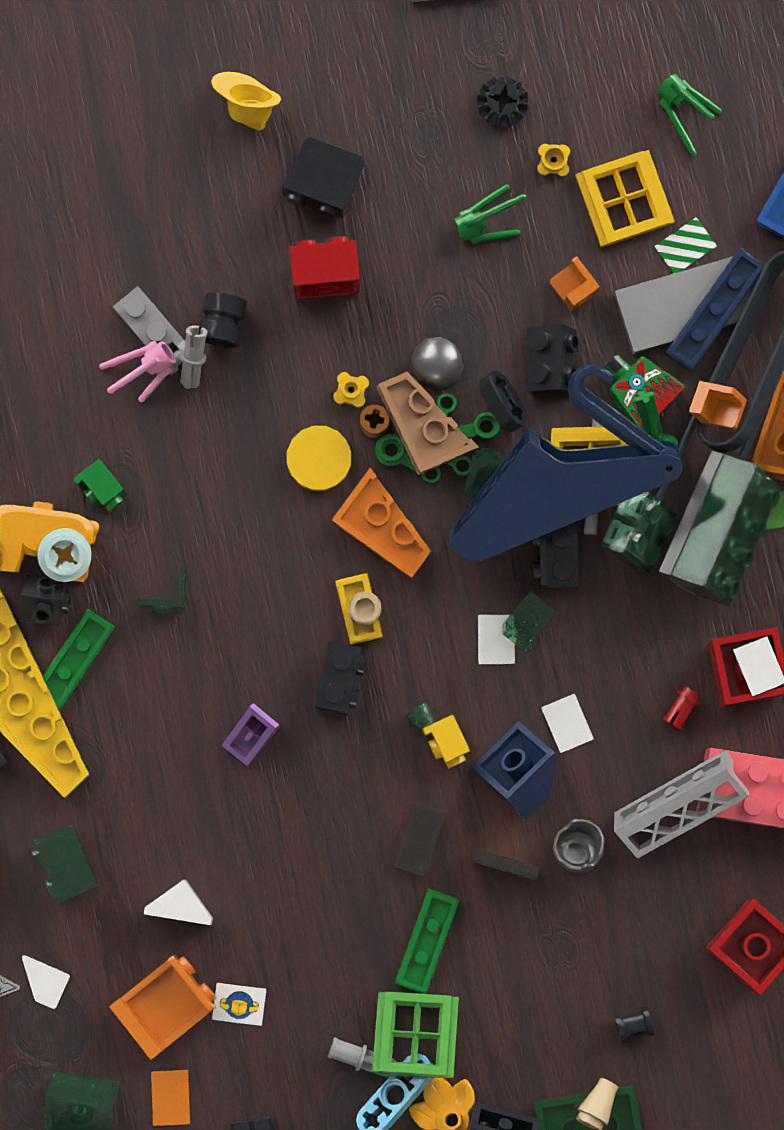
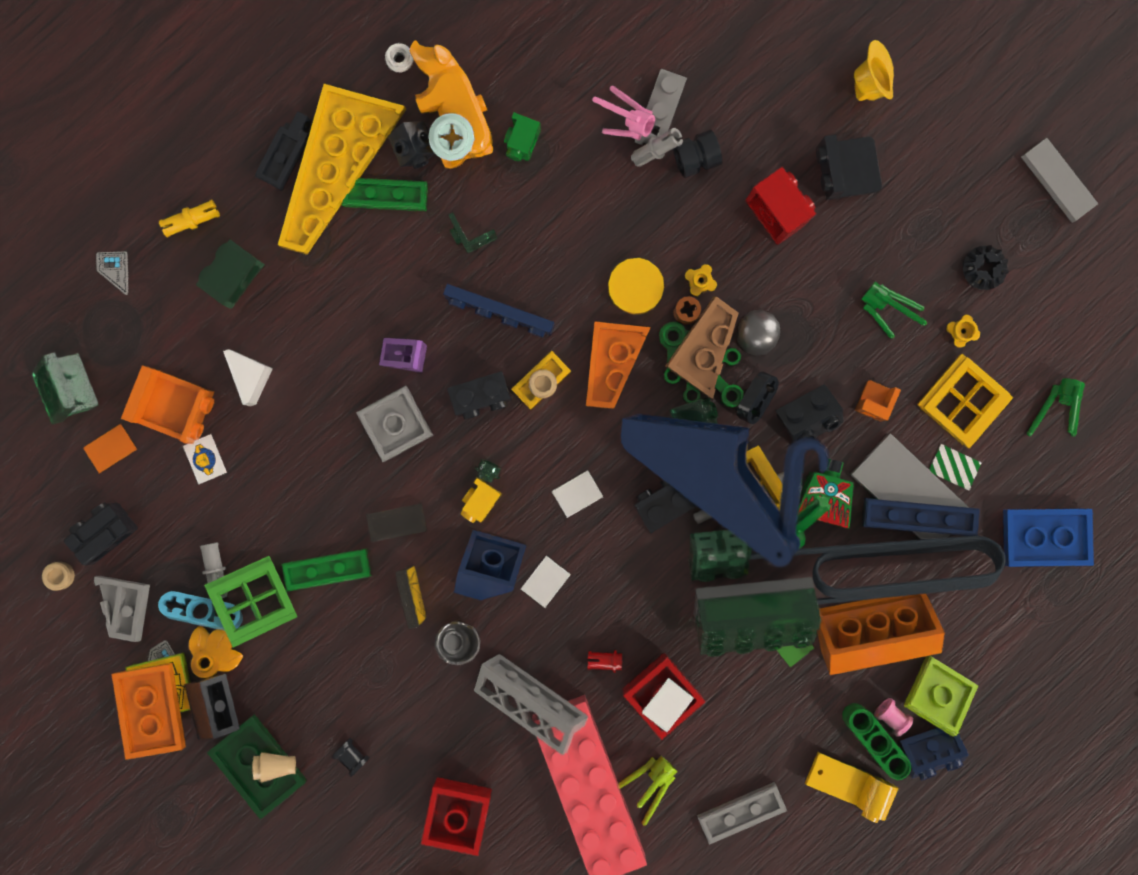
camera: 65 degrees right, 5 degrees up
(45, 981) = (141, 310): white sticker -> none
(275, 602) = (486, 308): none -> dark blue plate
(317, 783) = (394, 424): none -> light grey plate
(527, 621) = (602, 509): clear green bracket -> none
(718, 405) = (849, 562): orange panel -> none

